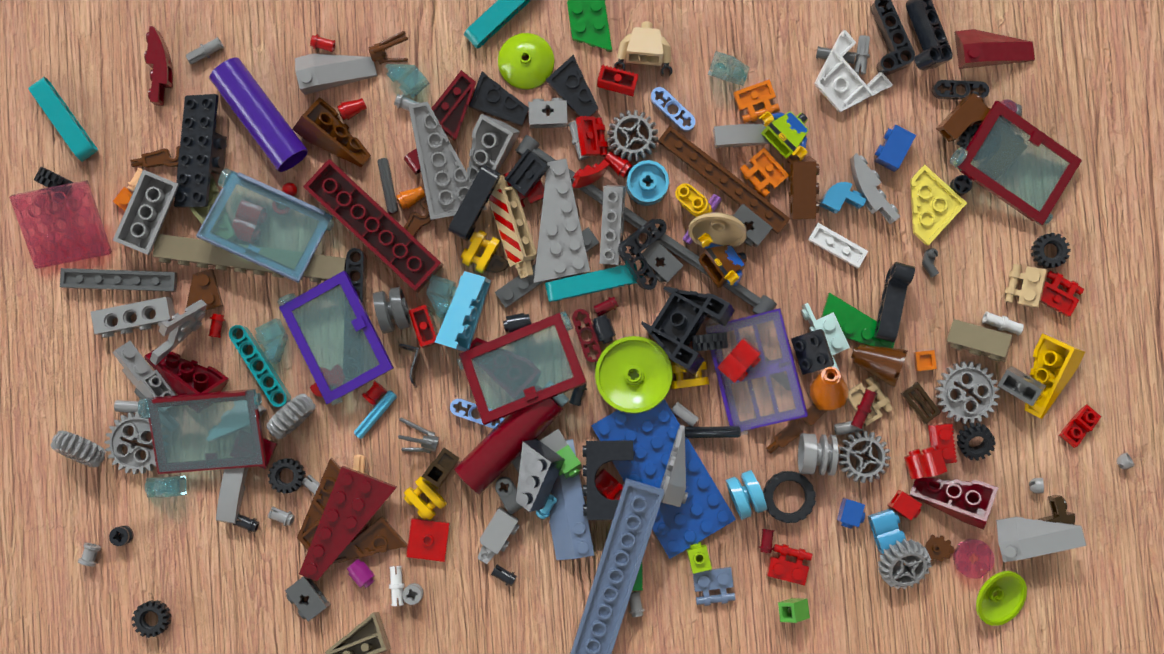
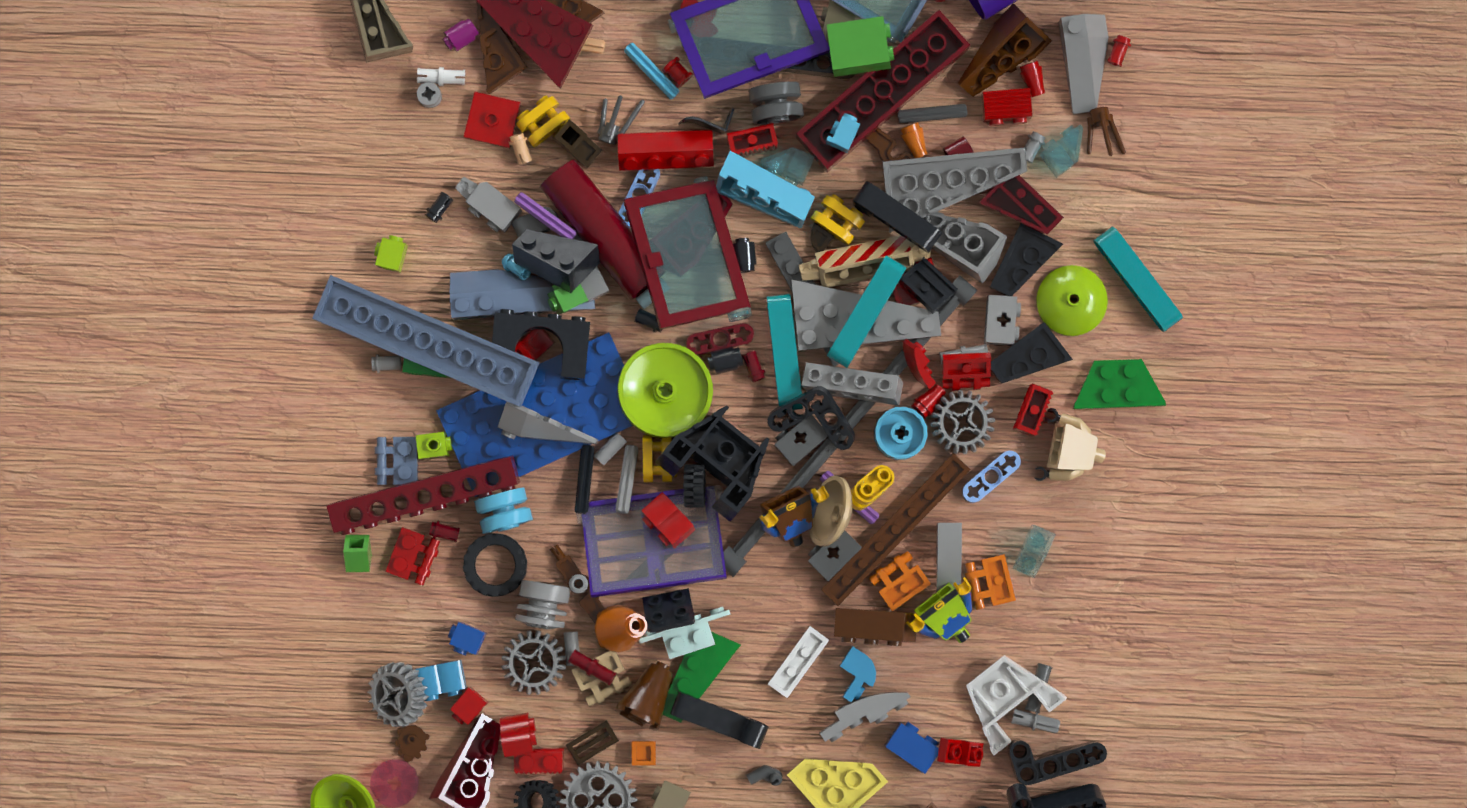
camera: 90 degrees right, 0 degrees up
(338, 246) = (860, 46): none -> bright green brick
(375, 126) = (1006, 106): none -> red brick
(411, 251) = (843, 132): none -> medium azure brick
(439, 395) = (665, 150): none -> red brick
(449, 513) = (520, 148): none -> light nougat pin
(503, 488) = (544, 216): none -> medium lavender axle
(546, 610) = (391, 253): none -> lime brick
(554, 218) = (866, 311): none -> teal beam
(705, 397) = (627, 479): none -> light grey axle
(770, 624) = (340, 511): none -> dark red brick
(803, 427) = (572, 583): none -> light grey pin
(894, 110) = (960, 752): none -> red slope

